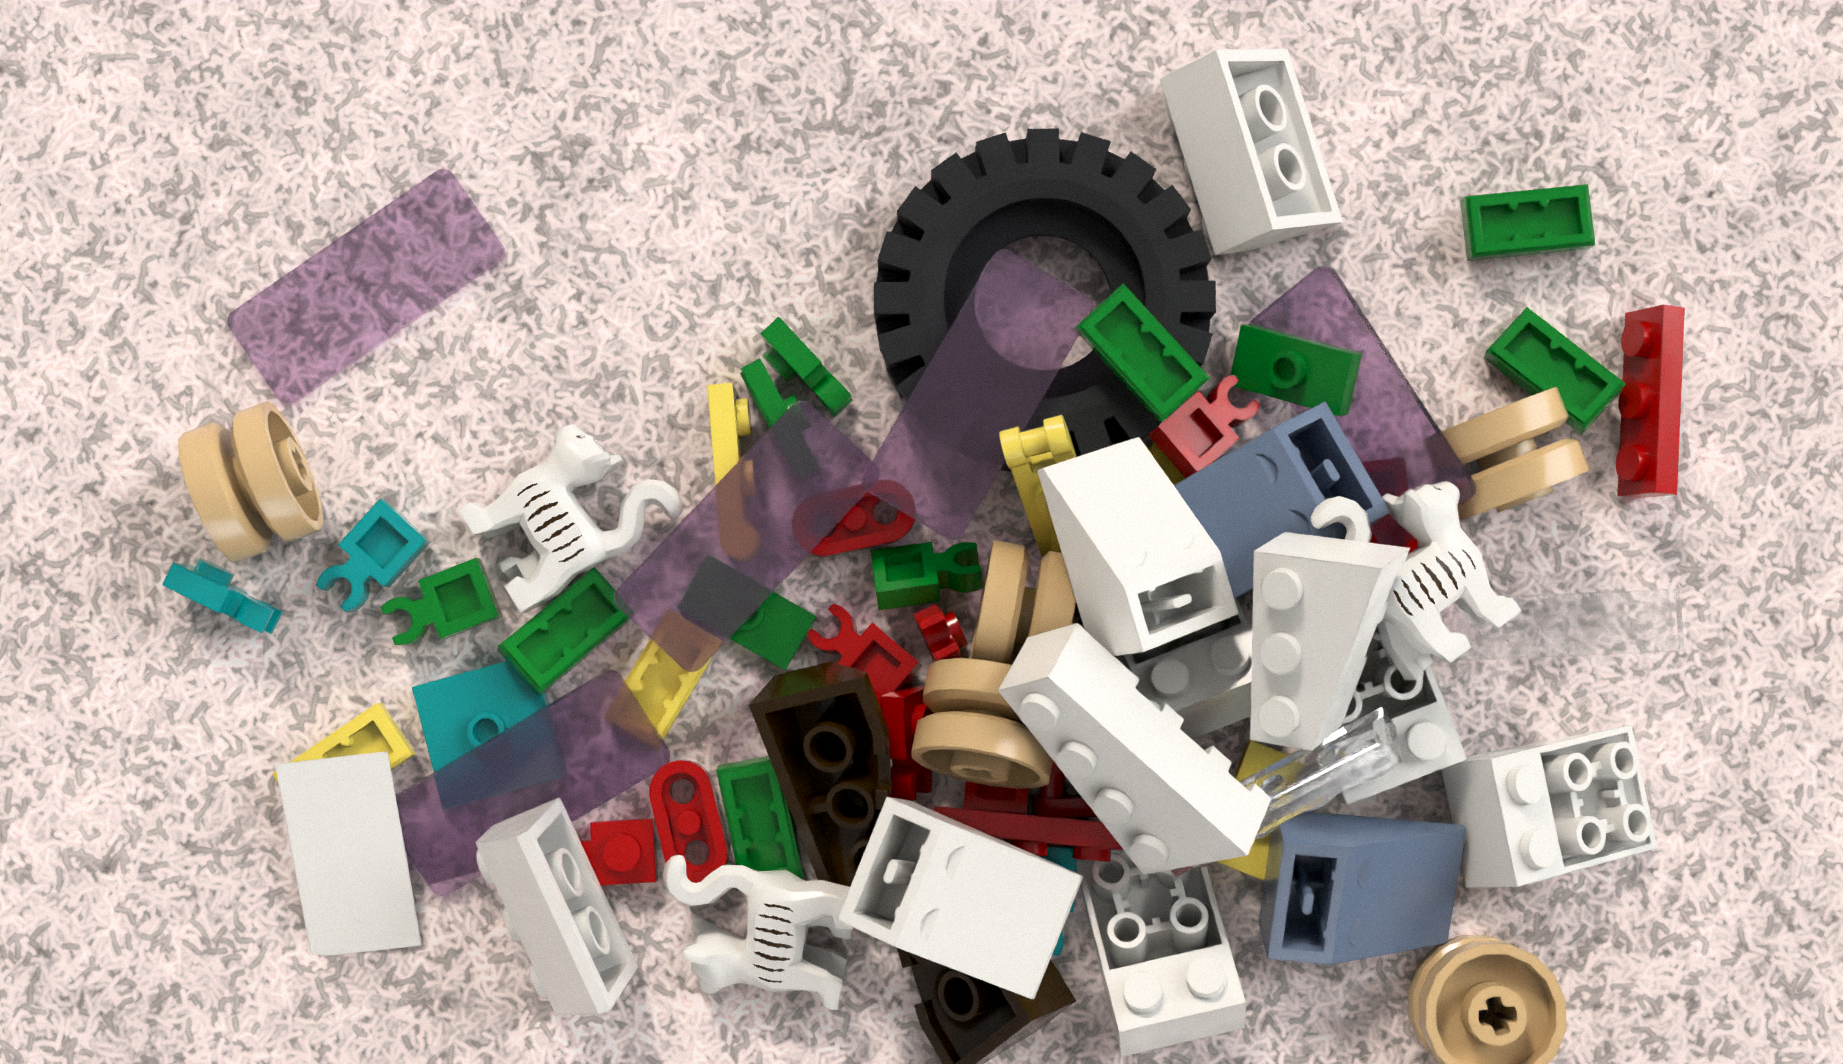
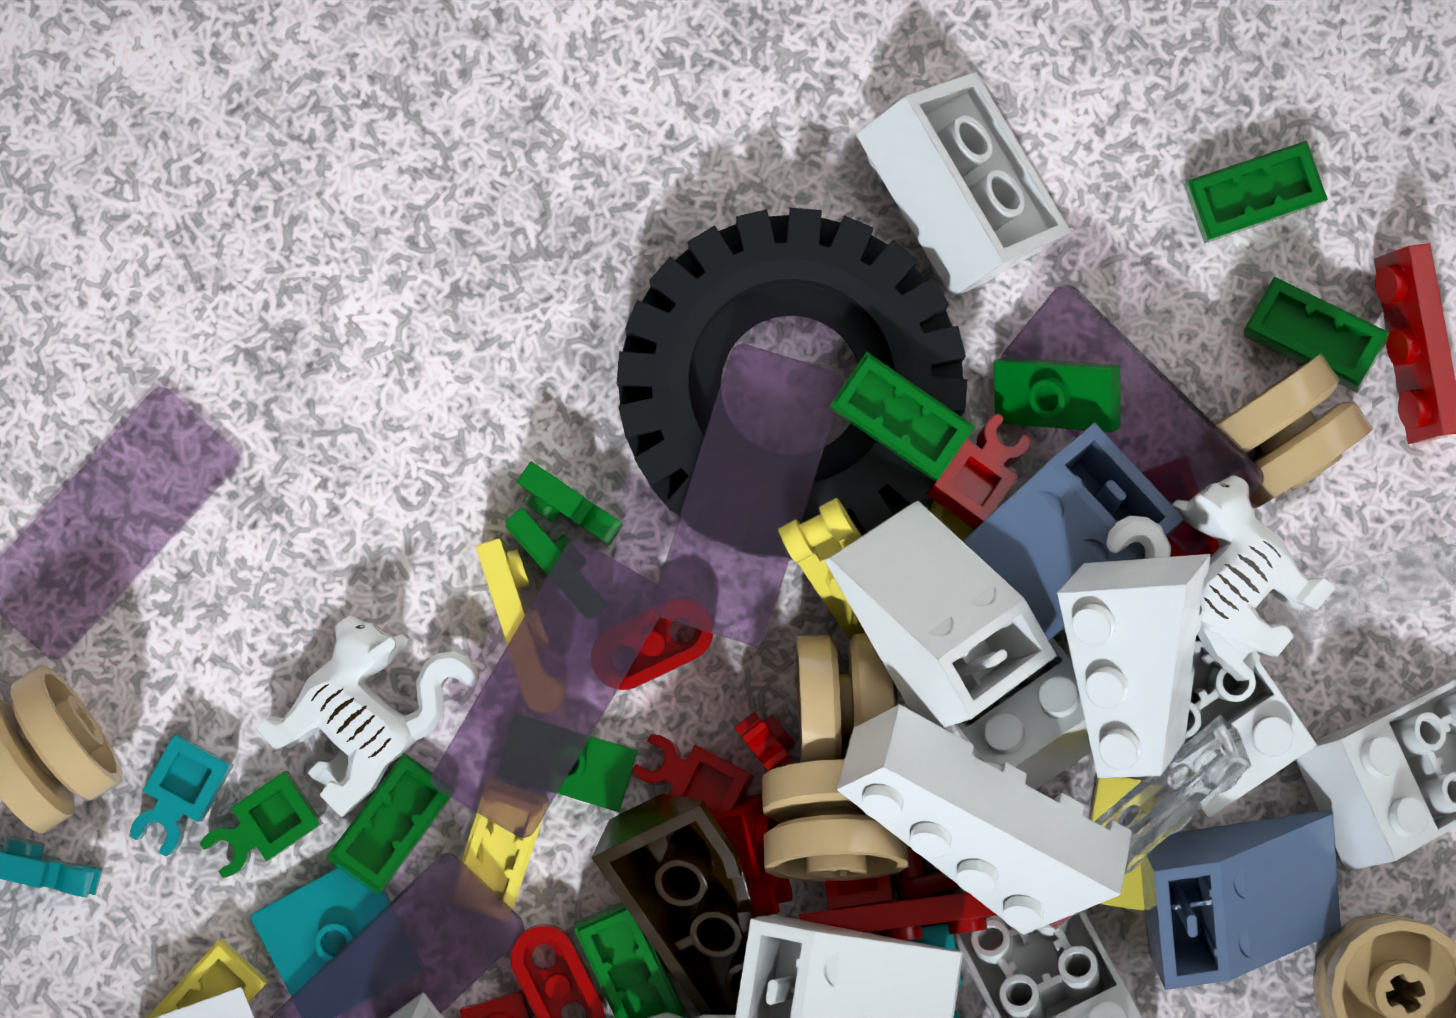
camera: 10 degrees left, 0 degrees up
(915, 573) = (726, 686): green plate -> none

